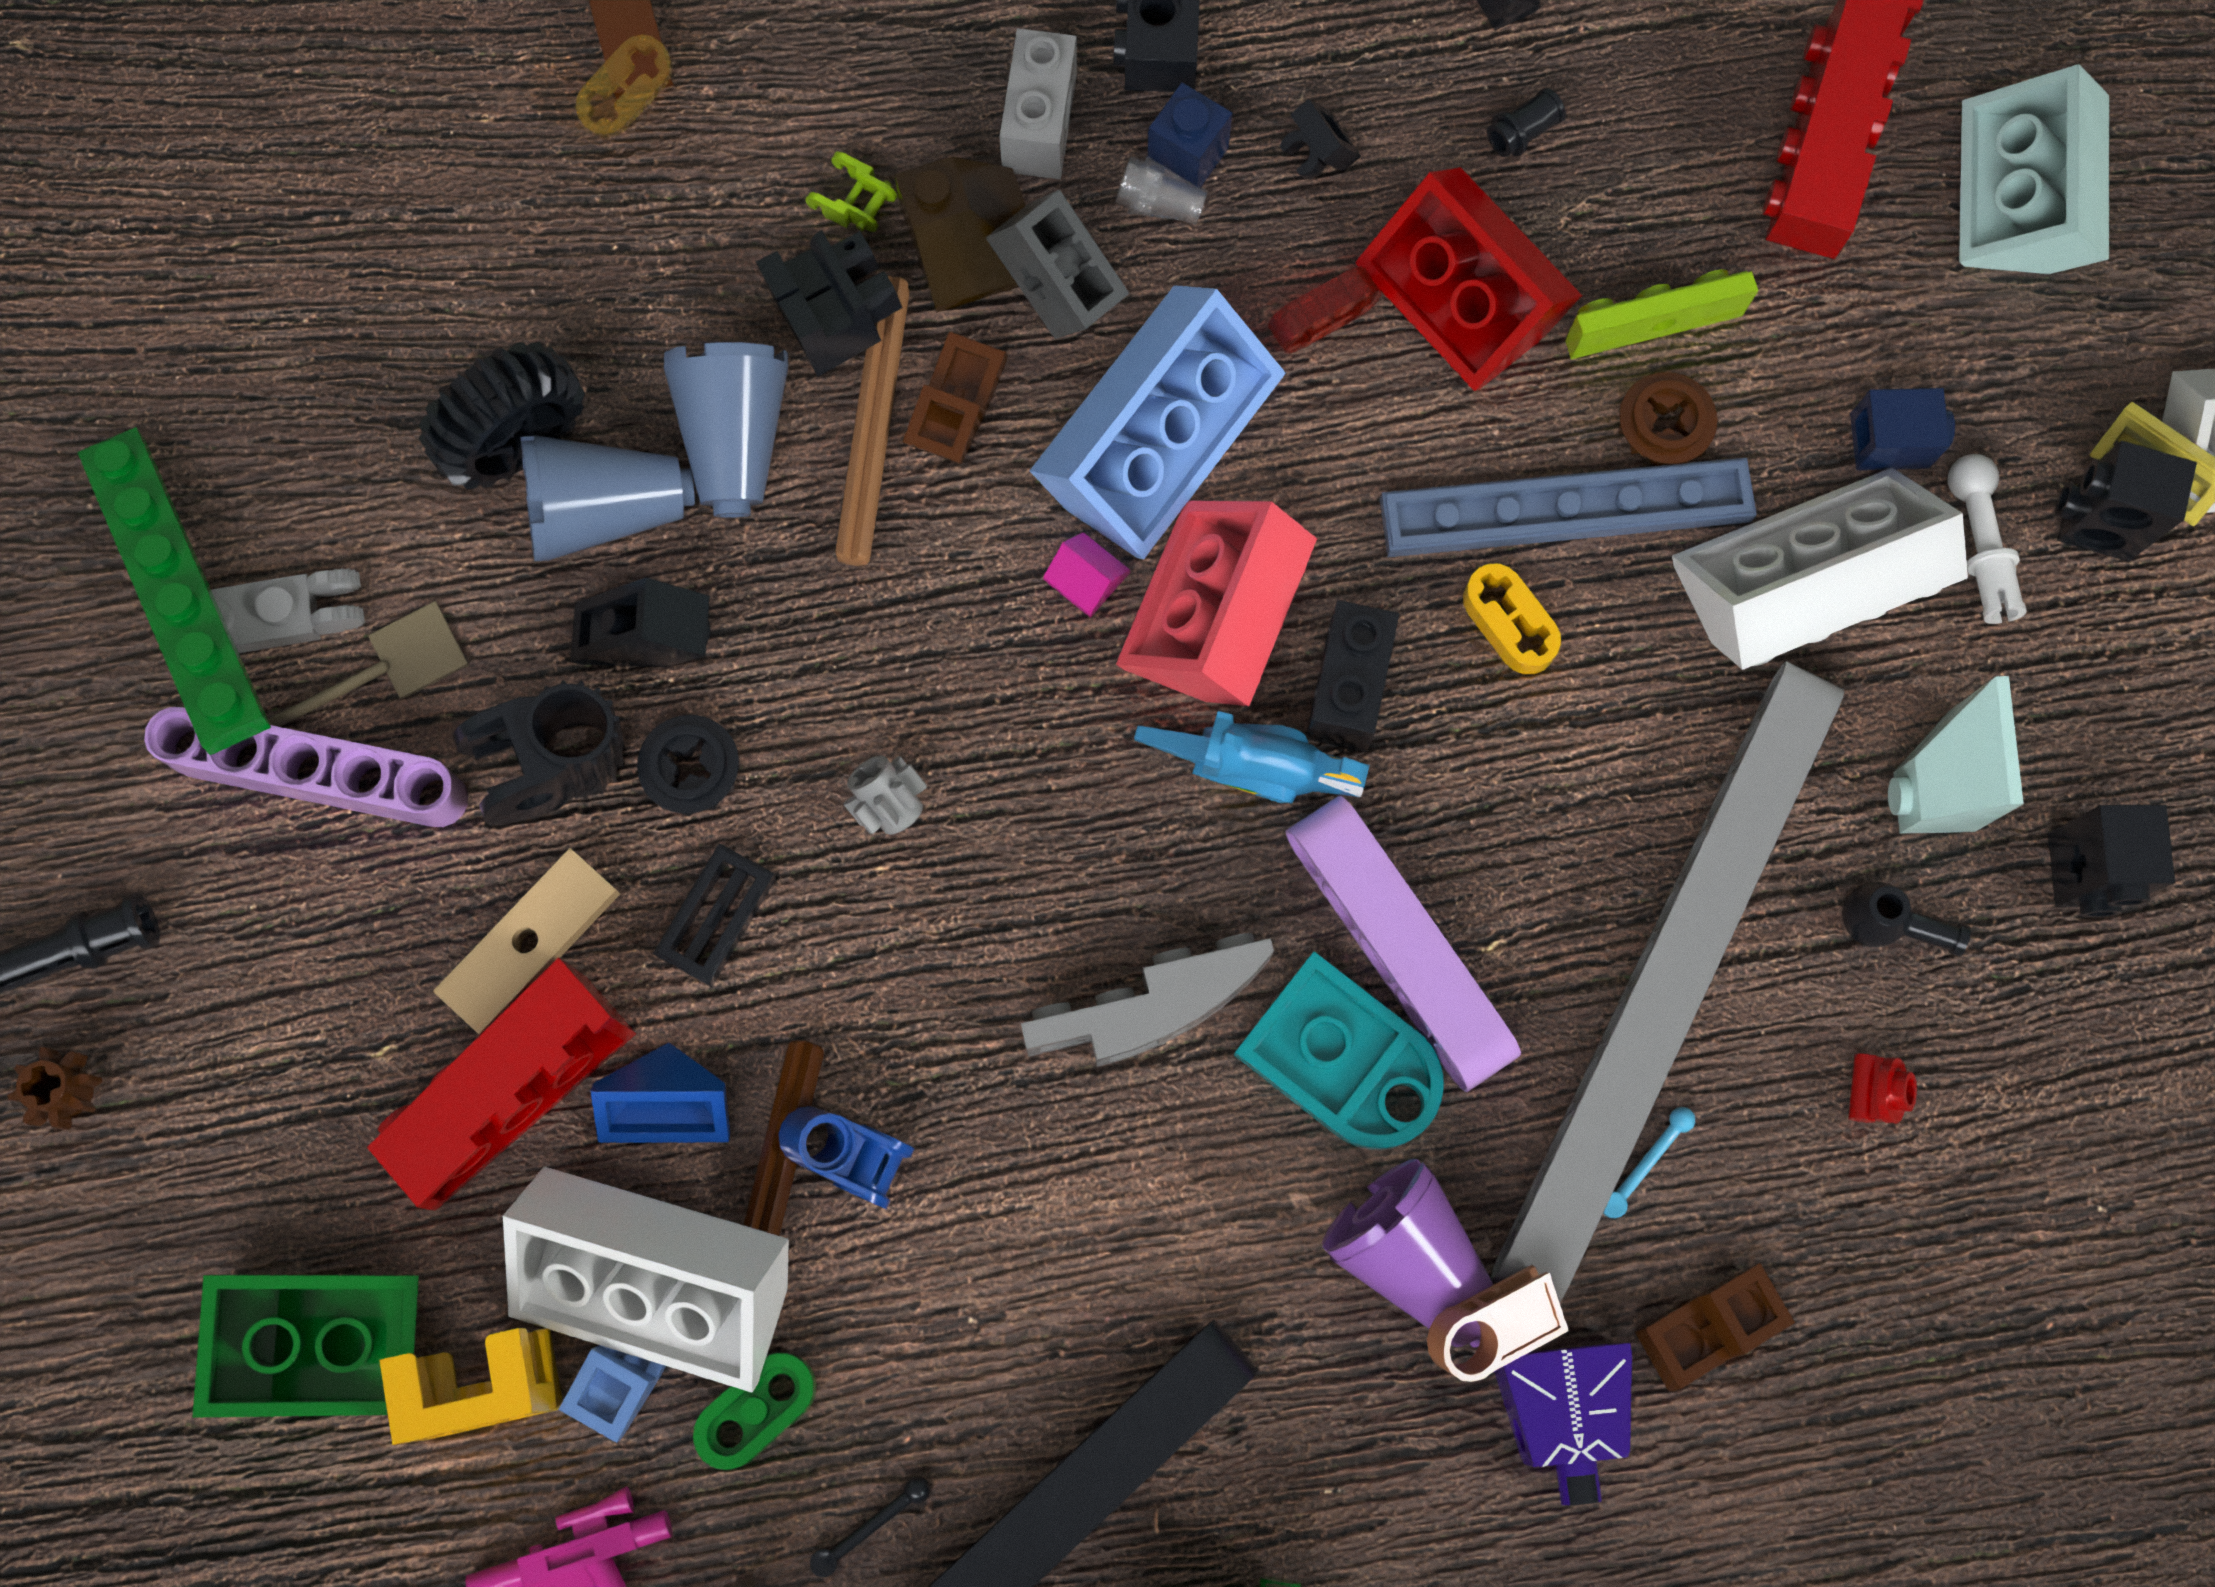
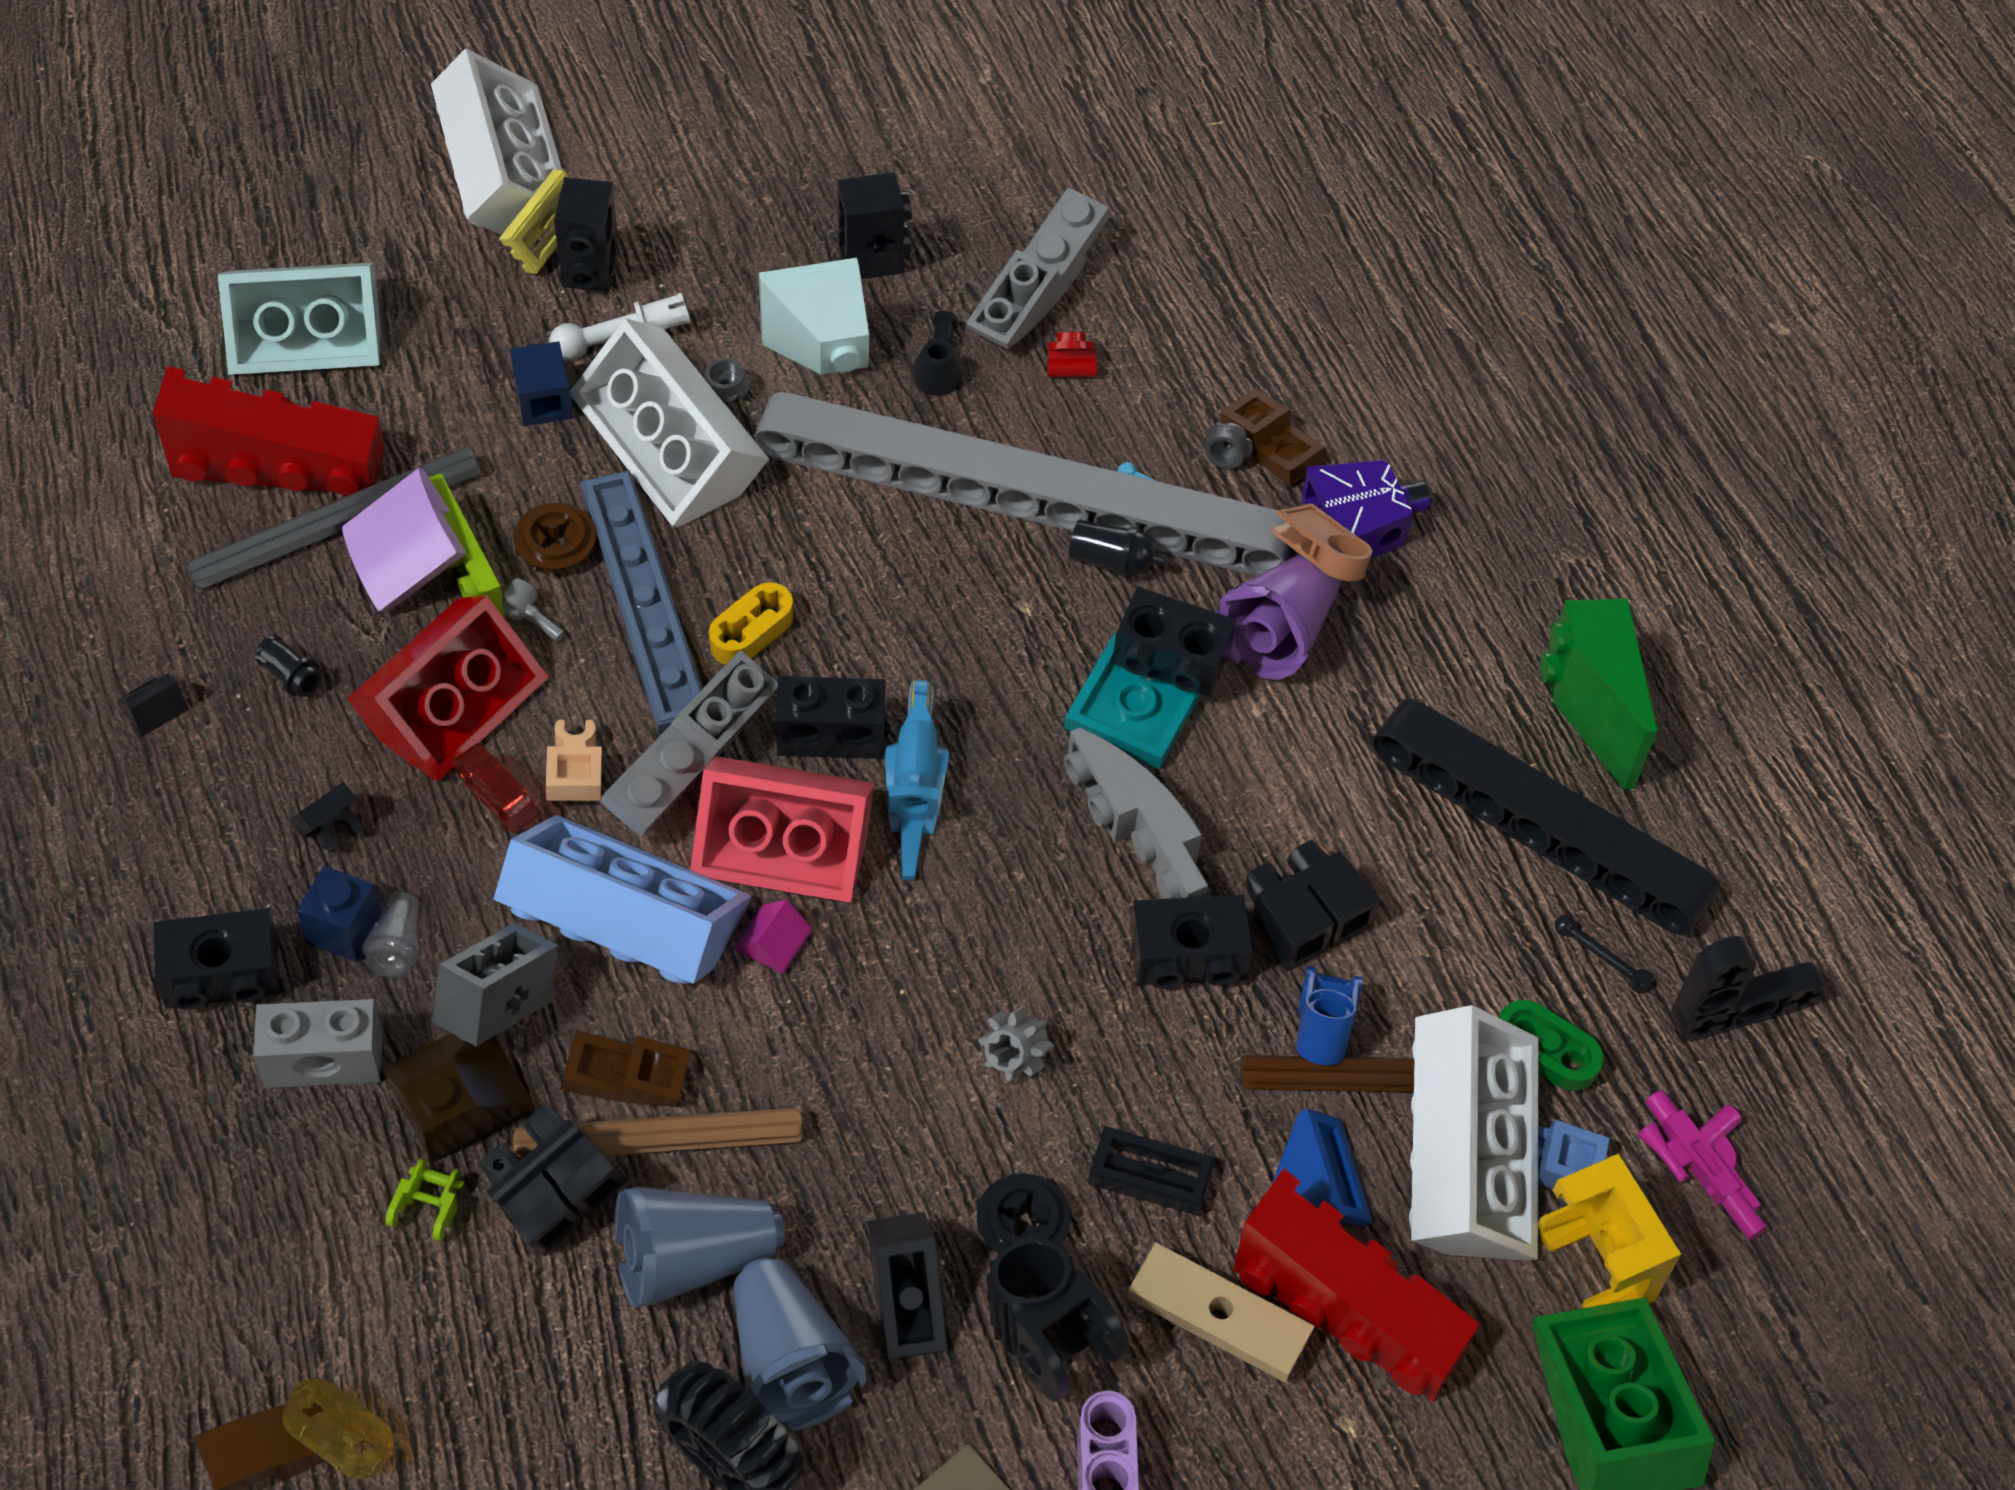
camera: 105 degrees left, 20 degrees down
(980, 1060) = (1210, 921): none -> black brick
(1011, 1200) = (1313, 907): none -> black hips
(1335, 395) = (574, 765): none -> light nougat plate
(1337, 513) = (689, 744): none -> light grey slope
(1393, 1104) = (1176, 634): none -> black brick
(1403, 943) = (1036, 661): lavender beam -> none
(1554, 1067) = (1114, 548): none -> black piece
(1581, 368) = (518, 605): none -> light grey hand
(1668, 238) = (402, 541): none -> lavender slope
(1704, 1259) = (1227, 445): none -> flat silver plate
(1732, 192) = (315, 524): none -> dark grey axle
(1895, 636) = (727, 372): none -> flat silver plate
(2021, 1077) = (1041, 273): none -> light grey slope

